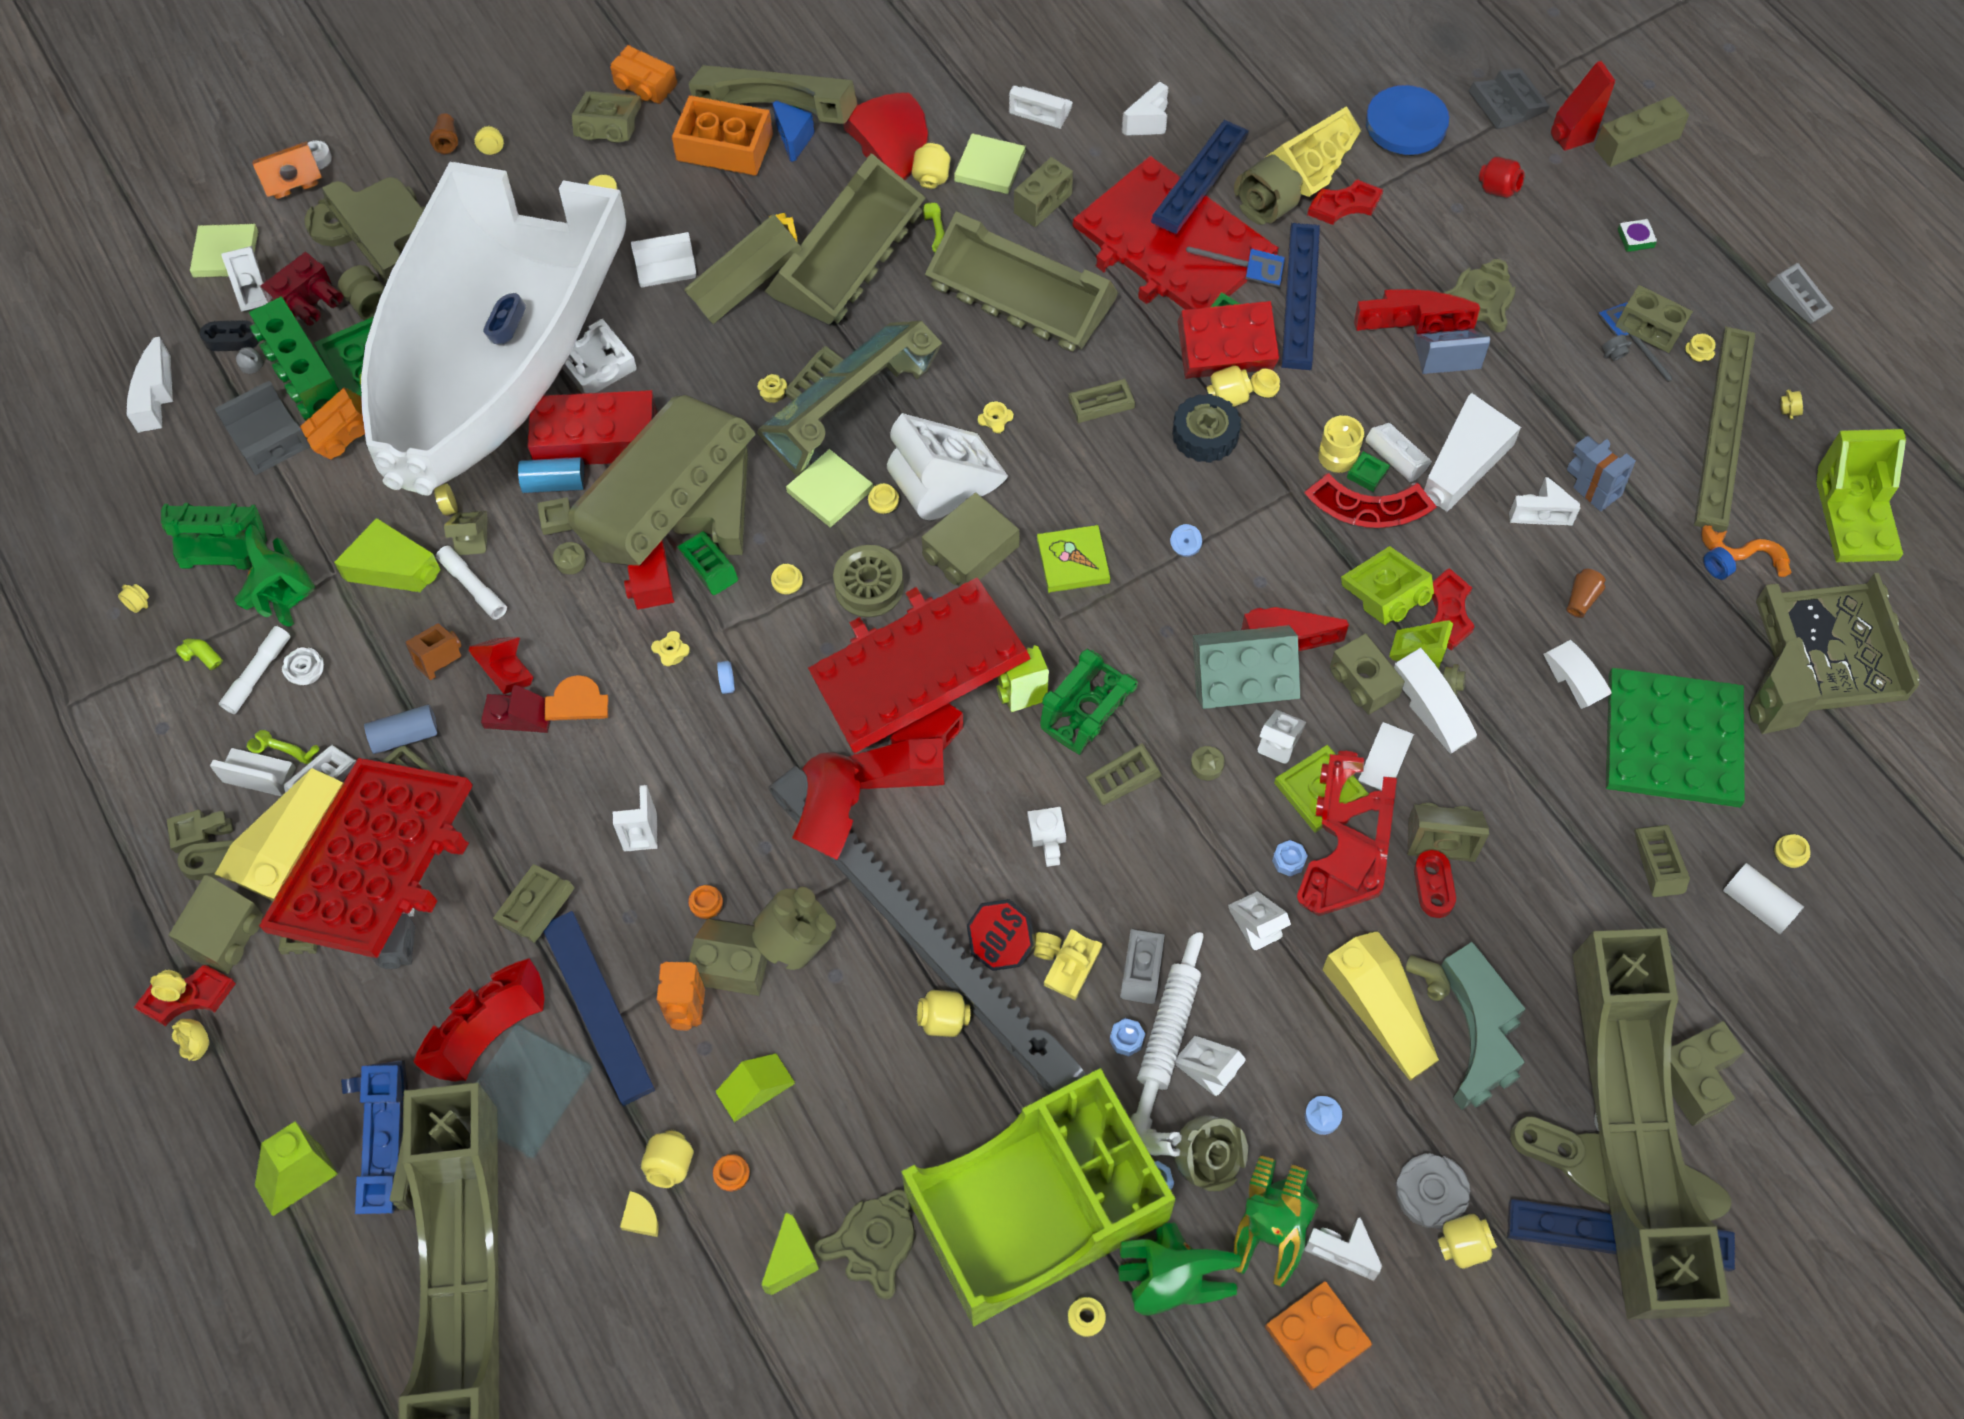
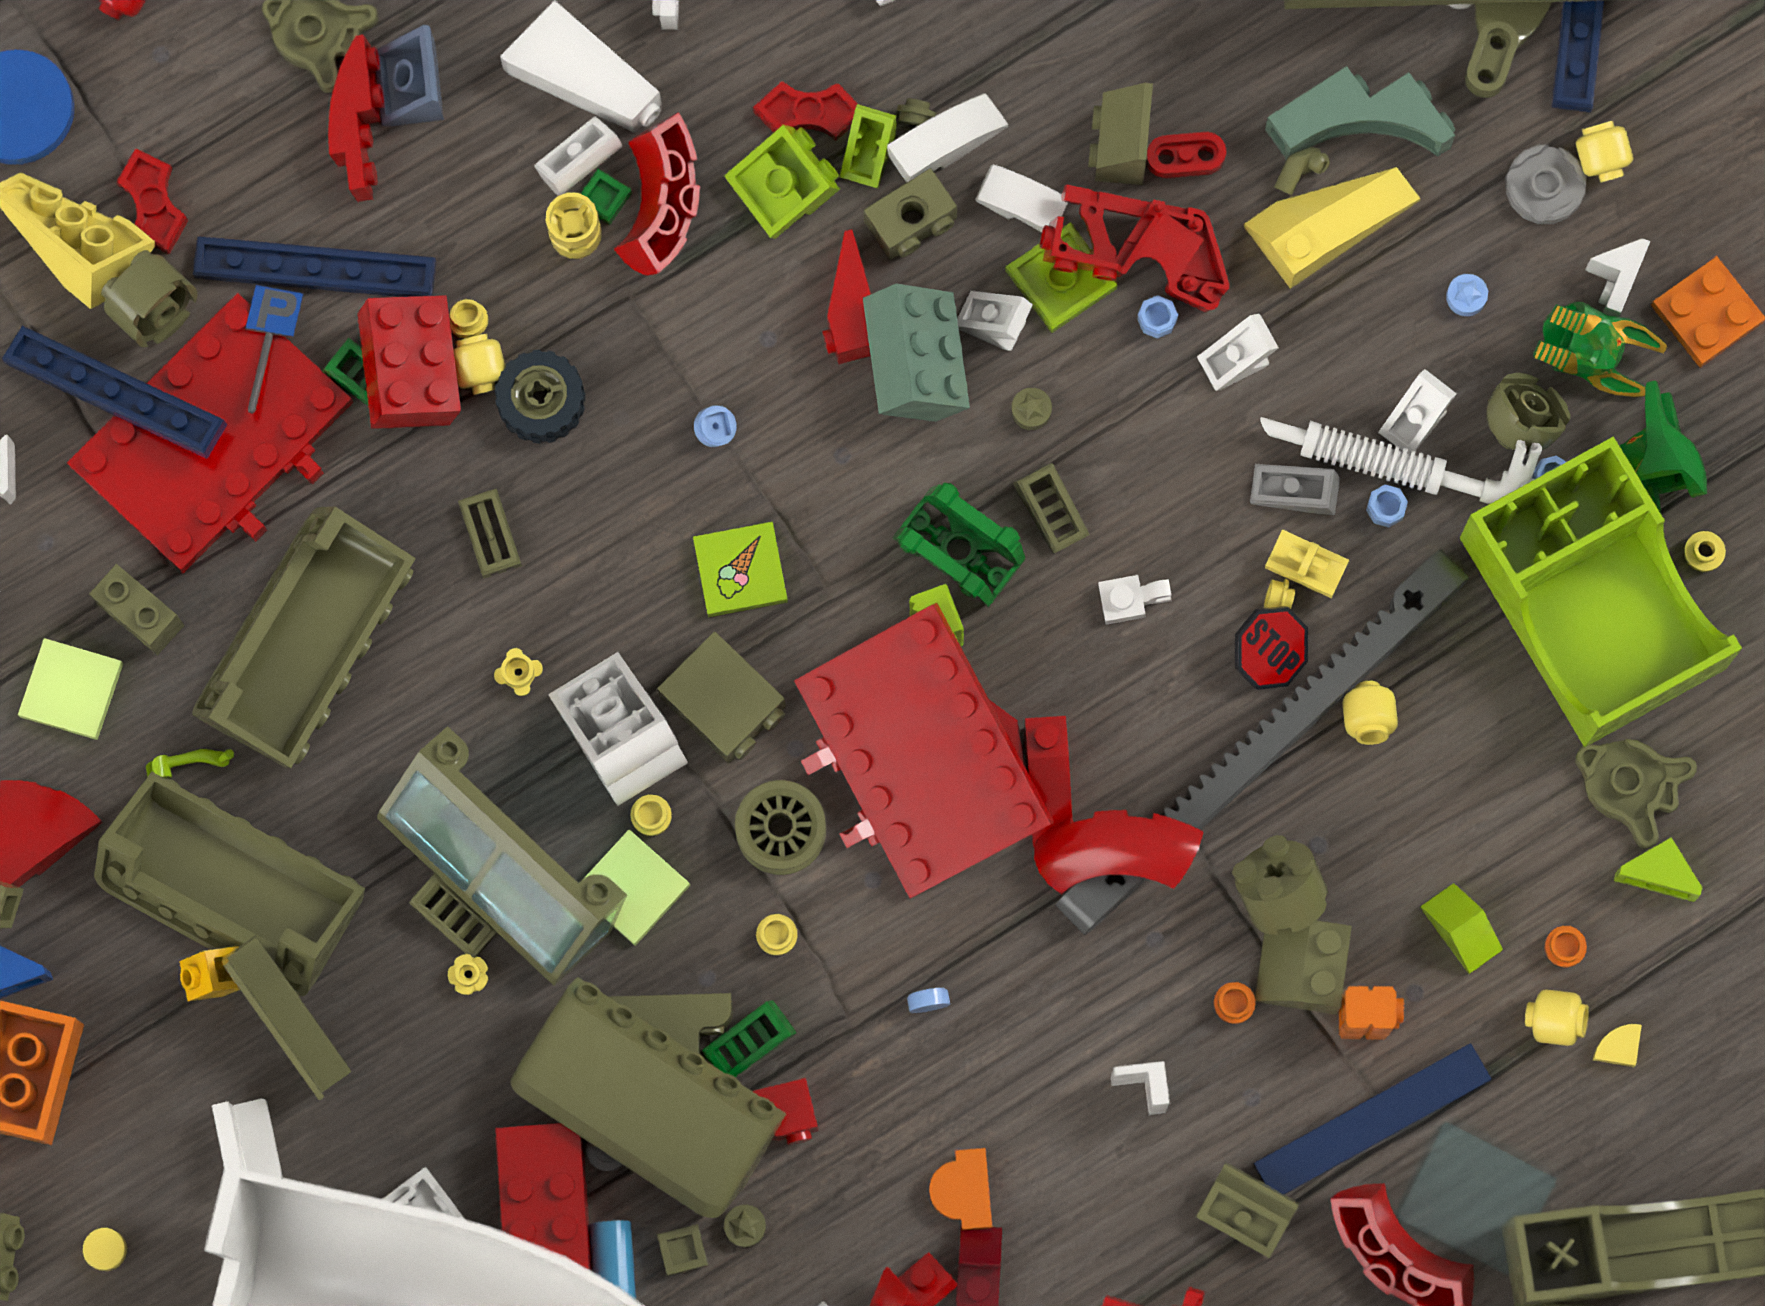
camera: 90 degrees left, 15 degrees up
(673, 656) = (895, 1080): light yellow plate -> none
(931, 165) = (81, 769): light yellow head -> none

